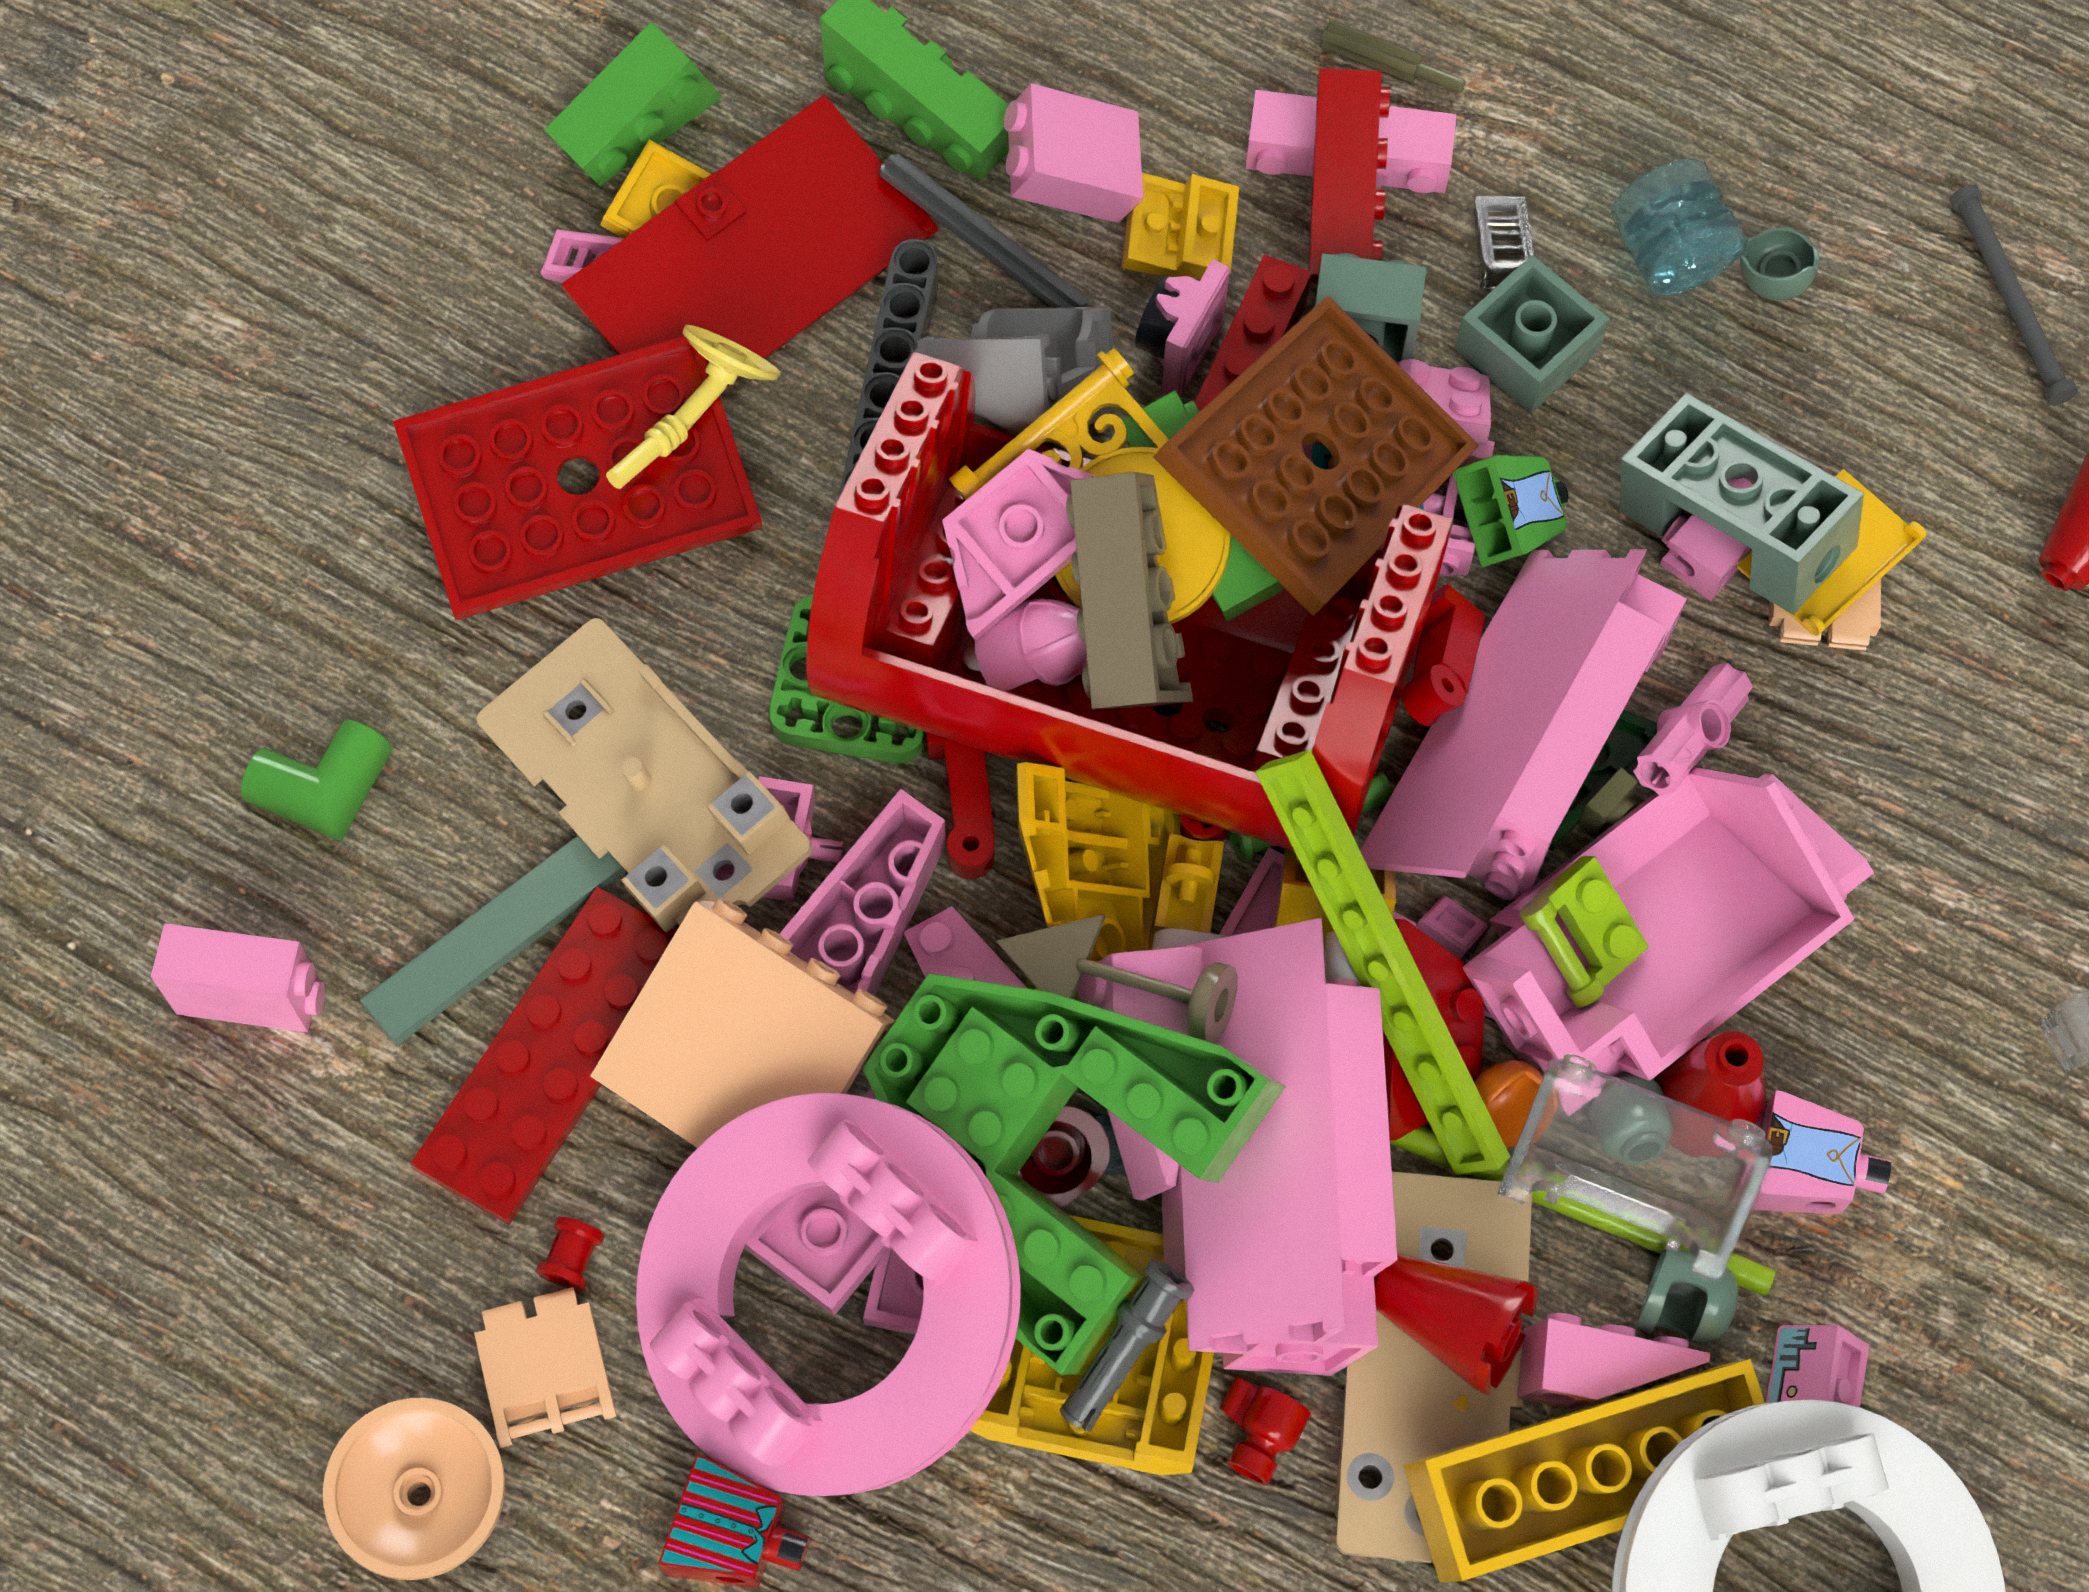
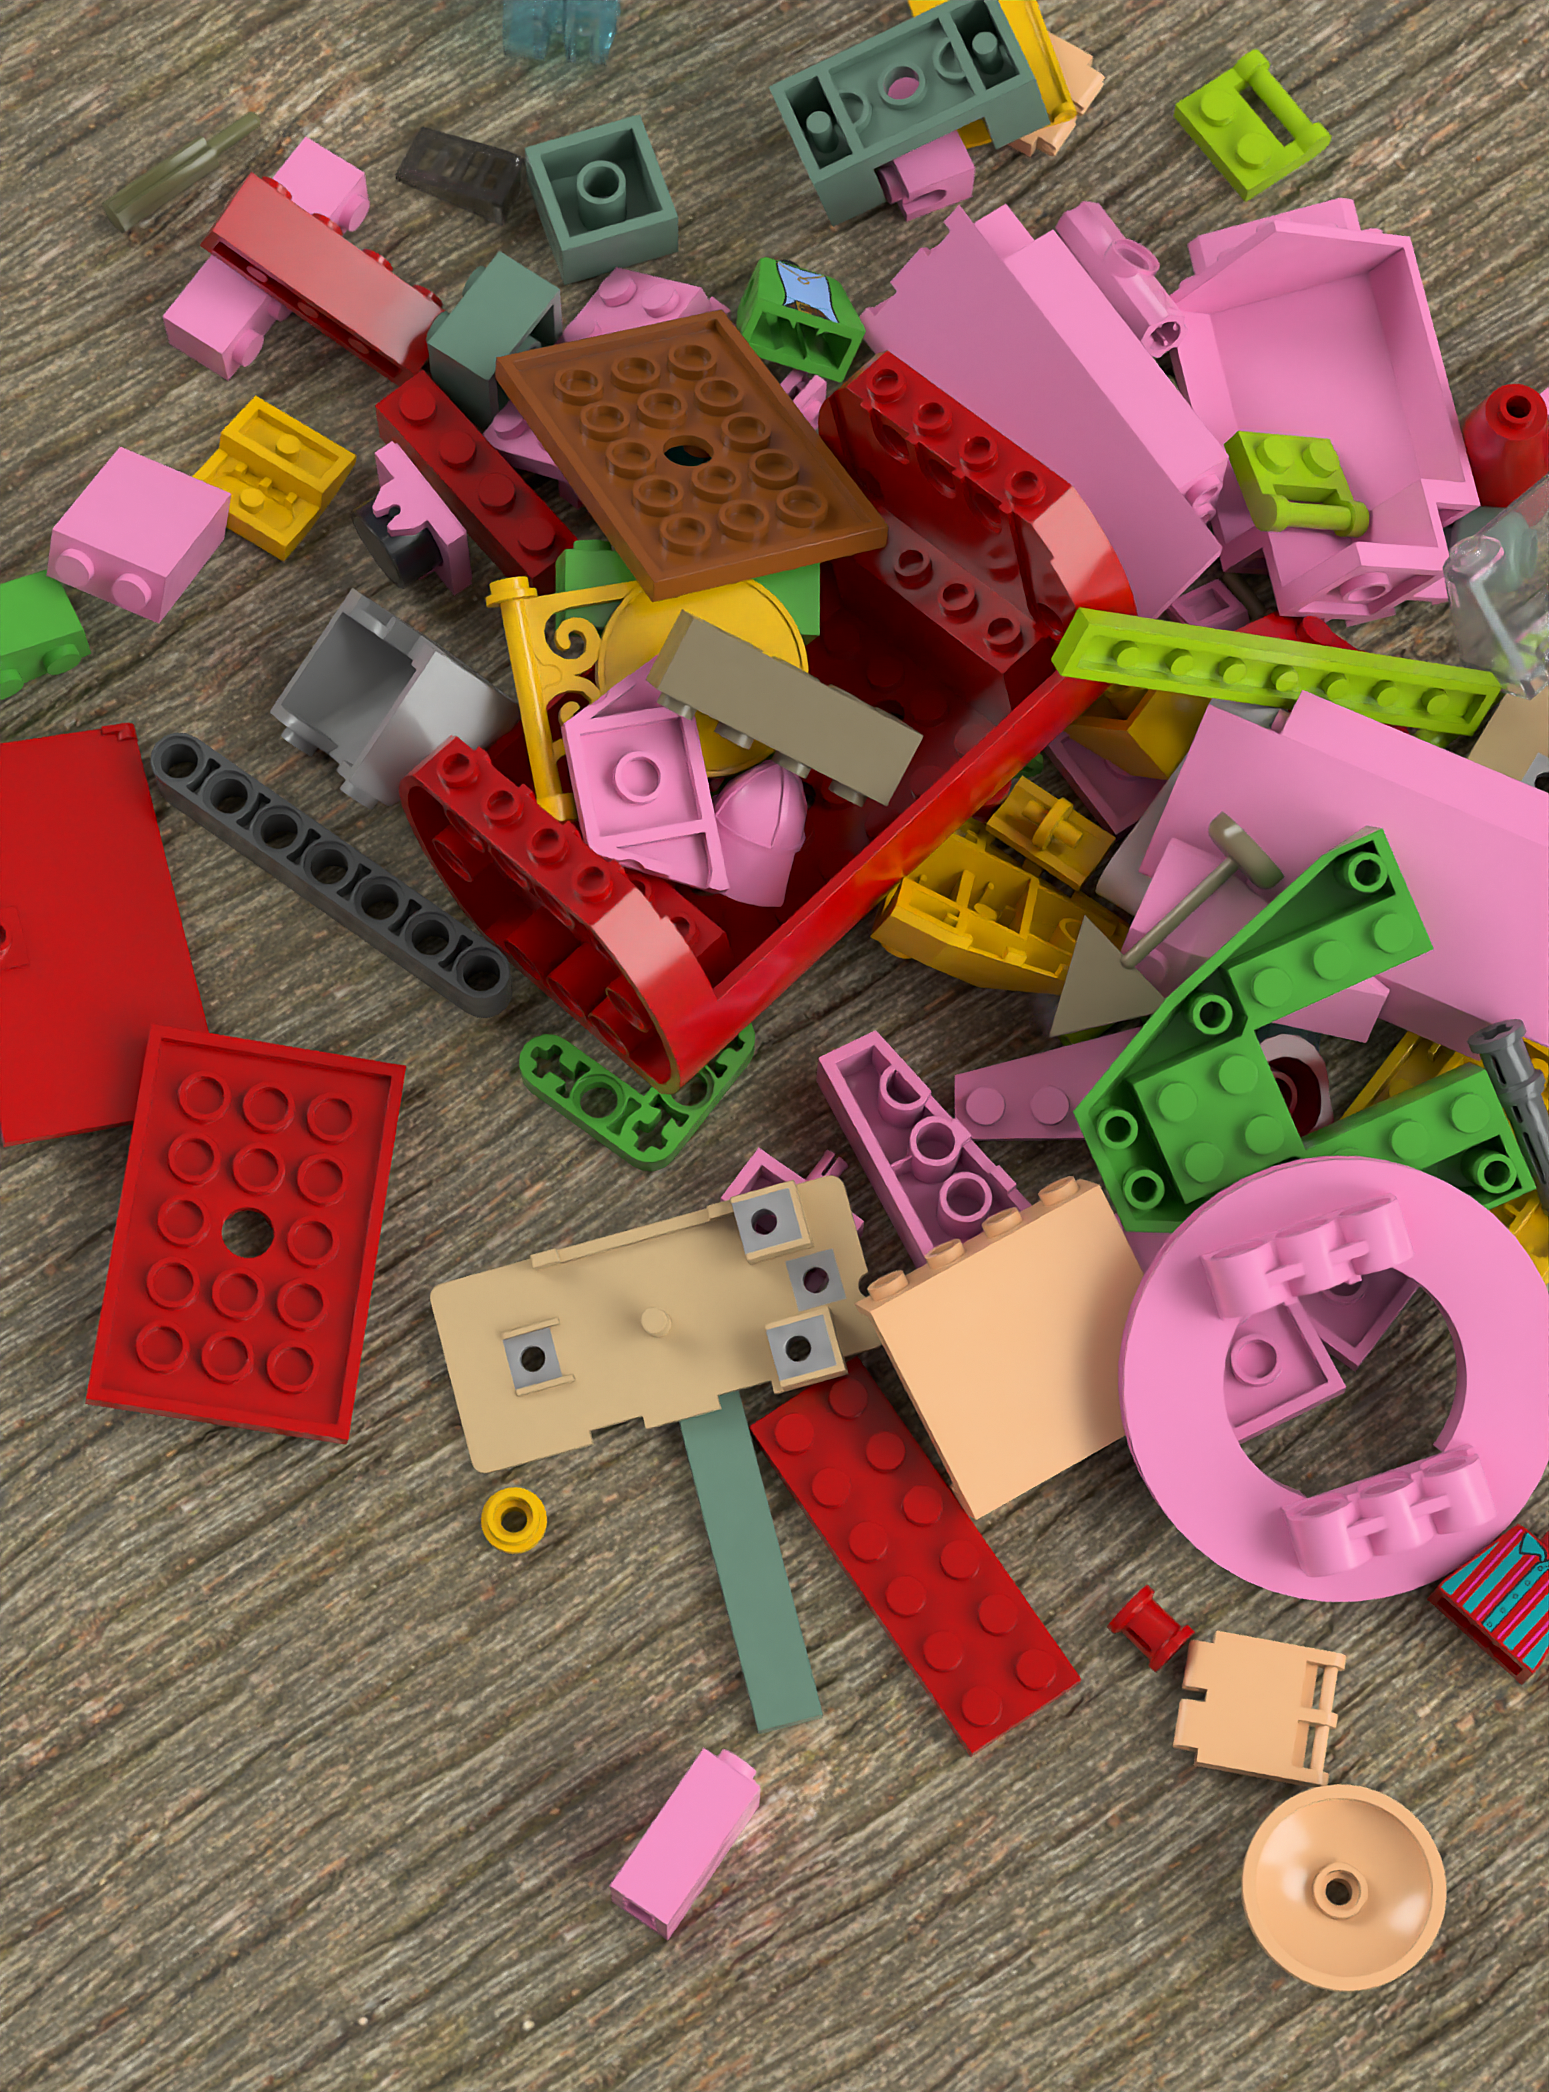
camera: 65 degrees left, 5 degrees up
(320, 796) = (490, 1672): bright green brick -> none
(442, 745) = (513, 1500): none -> yellow plate
(725, 364) = (214, 1008): light yellow dish -> none
(972, 837) = (850, 1009): red leg -> none
(980, 234) = (178, 679): dark grey axle -> none
(1508, 1094) = (1420, 633): orange hair -> none
(1884, 772) = (1236, 136): none -> lime plate

